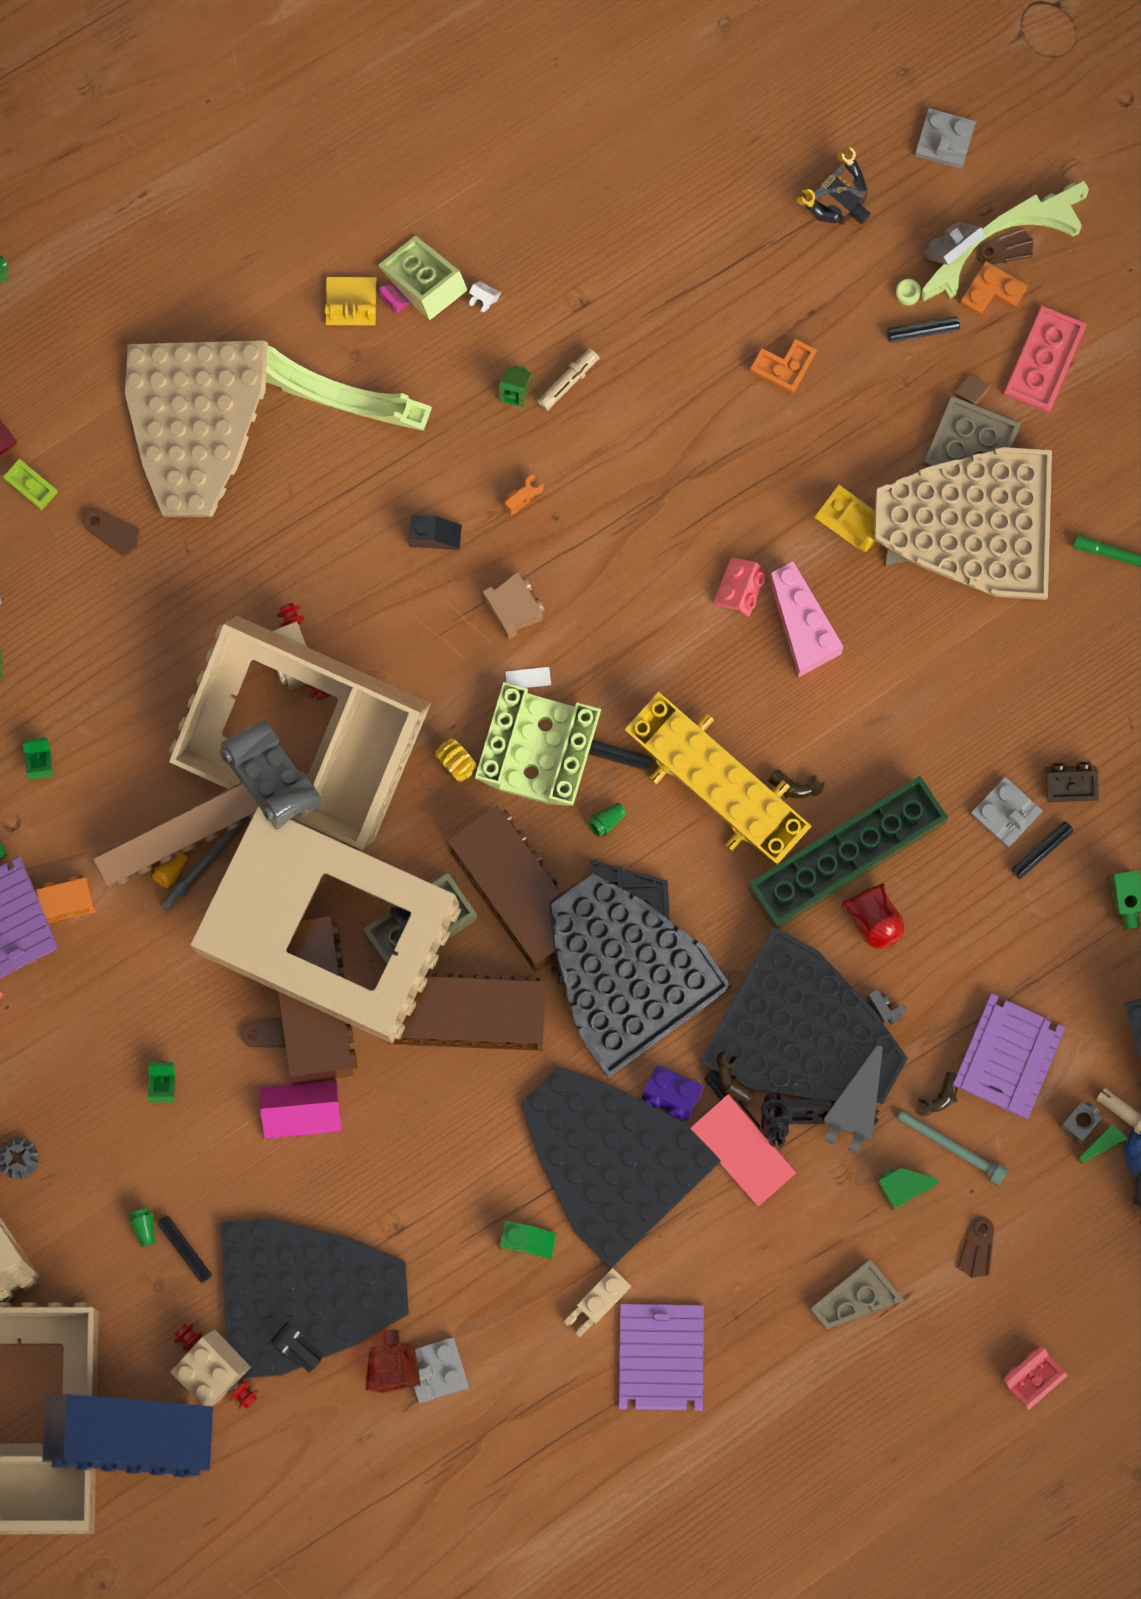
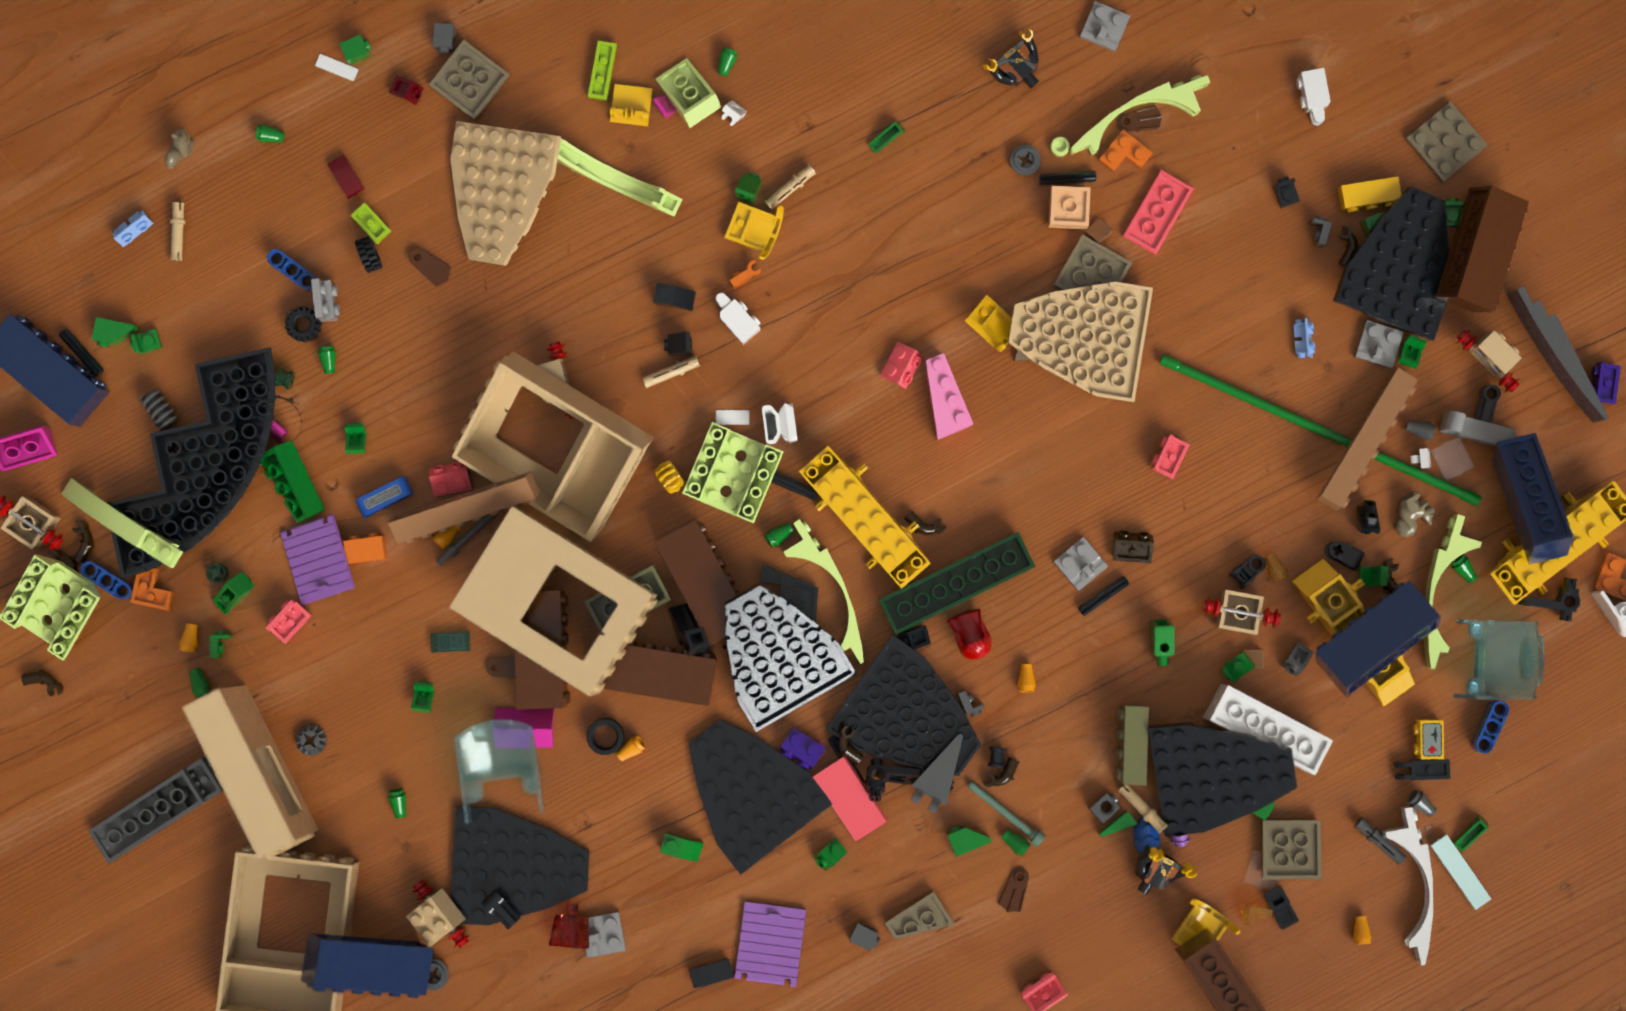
camera: 10 degrees right, 10 degrees up
(32, 521) = (368, 254): none -> black tyre
(59, 313) = (406, 89): none -> dark red bracket
(83, 829) = (384, 497): none -> blue beam
(101, 243) = (444, 37): none -> dark grey brick
(139, 292) = (469, 80): none -> dark tan plate
(167, 796) = (449, 479): none -> coral bracket
(184, 1249) = (427, 823): black axle -> none
(190, 1008) = (450, 642): none -> clear green tile
(226, 1445) = (442, 972): none -> dark grey gear
(269, 774) = (522, 483): dark grey piece -> none
(270, 1142) = (494, 753): none -> clear light blue windscreen
(309, 262) = (602, 70): none -> lime plate
(409, 1087) = (619, 731): none -> black tyre
(442, 627) = (671, 371): none -> tan pin
(445, 1118) = (631, 748): none -> light orange cone
(448, 590) = (678, 344): none -> black slope
(467, 231) = (726, 61): none -> green cone
(503, 952) = (687, 630): none -> black arch
(514, 605) = (728, 360): medium nougat hips -> none
(519, 550) = (737, 319): none -> white hinge
(529, 435) = (755, 228): none -> yellow piece
(587, 1404) = (711, 973): none -> black slope
(592, 674) = (779, 423): none -> white piece
(599, 1300) = (729, 897): tan hinge -> none
(648, 835) = (808, 550): none -> yellowish green slope
(684, 304) = (886, 136): none -> green piece
(726, 1228) = (830, 854): none -> green bracket
(785, 372) = (957, 200): orange plate -> none
(786, 1330) = (864, 936): none -> dark grey brick
(804, 929) = (915, 637): none -> black bracket
(876, 308) = (1022, 151): none -> dark grey gear
(930, 363) = (1069, 207): none -> light nougat container
(930, 1073) = (997, 757): none -> black bush
(953, 243) = (1100, 113): light grey hinge -> none
(956, 969) = (1026, 679): none -> light orange cone
(973, 1184) = (1016, 843): none -> green cone
(1010, 1054) = (1058, 750): medium lavender door -> none
(1103, 662) = (1170, 456): none -> coral bracket
(1107, 1033) = (1132, 744): none -> olive brick

